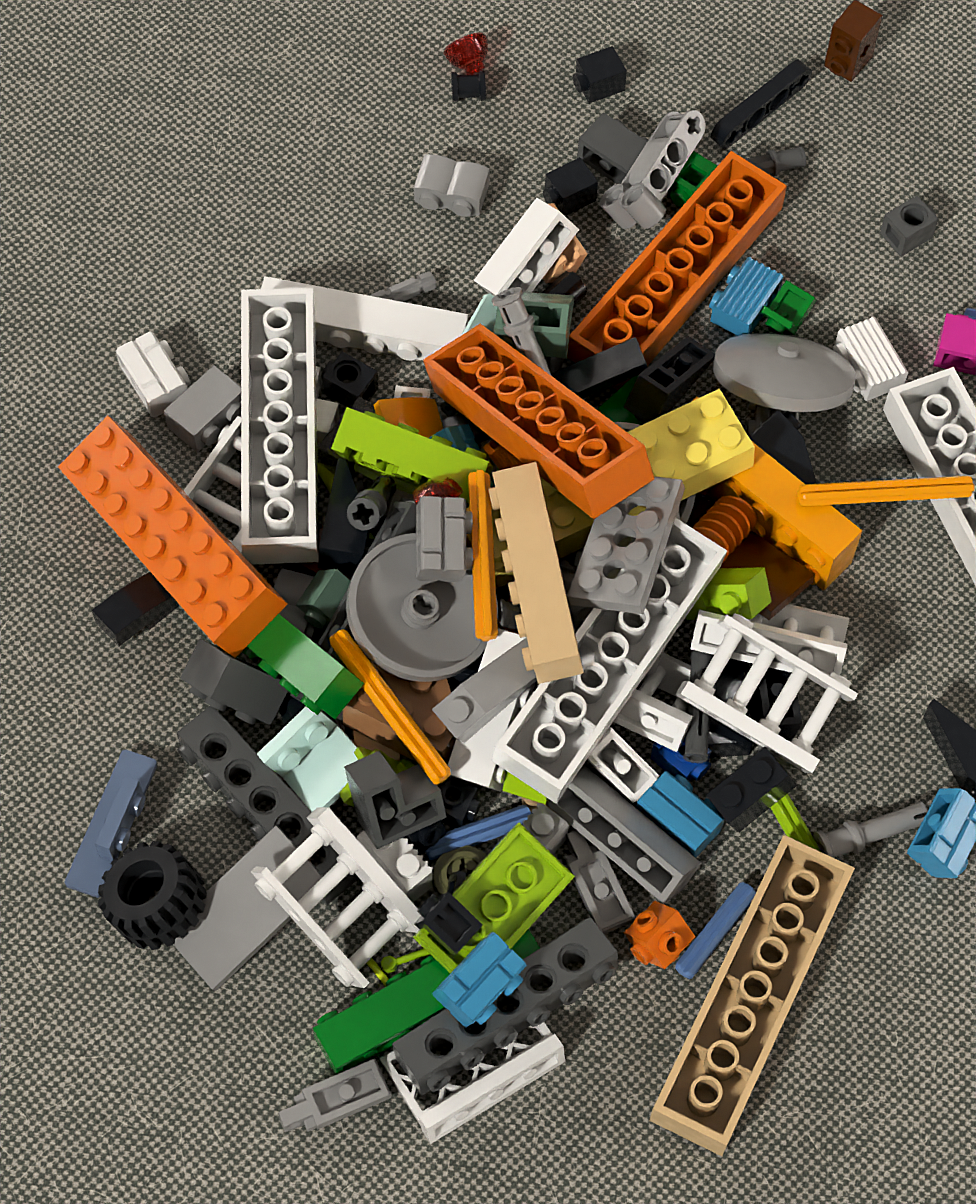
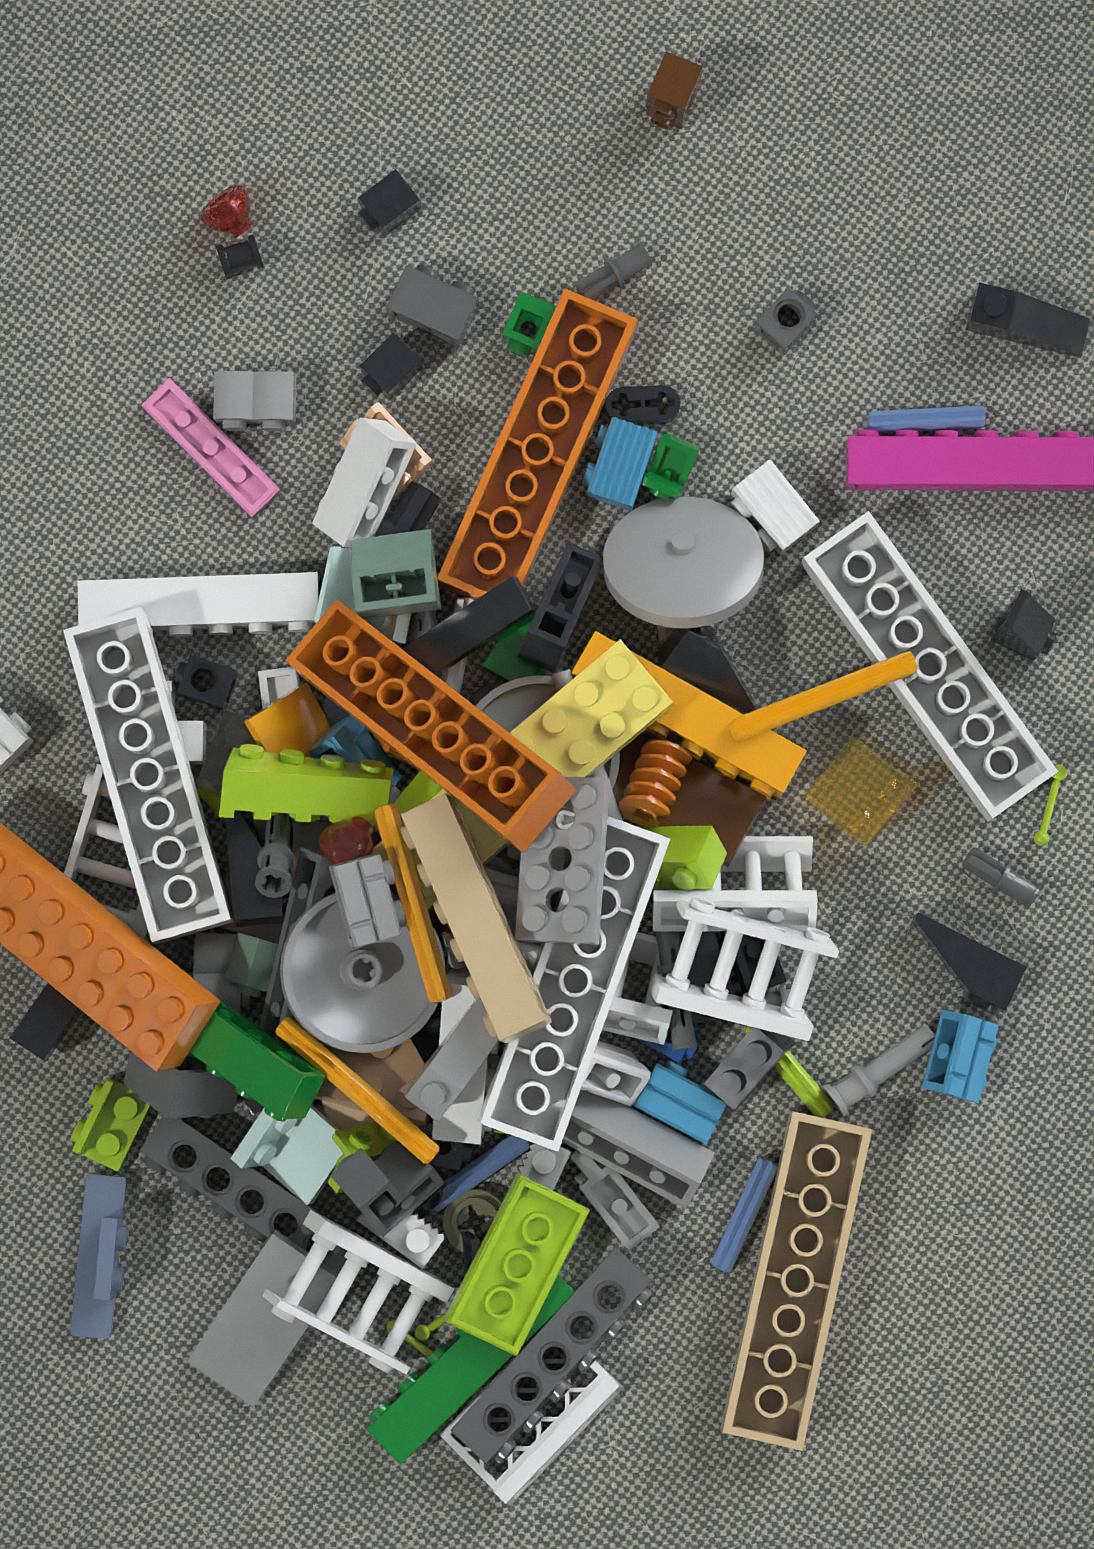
camera: 10 degrees left, 20 degrees up
(136, 877) = (138, 1326): black tyre -> none
(157, 712) = (110, 1125): none -> lime bracket
(204, 409) = (58, 757): light grey brick -> none
(336, 1098) = (408, 1486): light grey hinge -> none
(405, 217) = (211, 448): none -> bright pink tile
(408, 288) = (235, 547): light grey axle -> none
(447, 921) = (474, 1302): black bracket -> none
(479, 980) = (523, 1353): dark azure brick -> none
(520, 325) = (384, 610): light grey pin -> none
(654, 171) = (483, 333): light grey piece -> none
(659, 935) = (688, 1242): orange brick -> none
(761, 104) = (584, 195): black beam -> none
(778, 259) = (643, 395): none -> black beam
(900, 597) = (859, 792): none -> clear yellow bracket

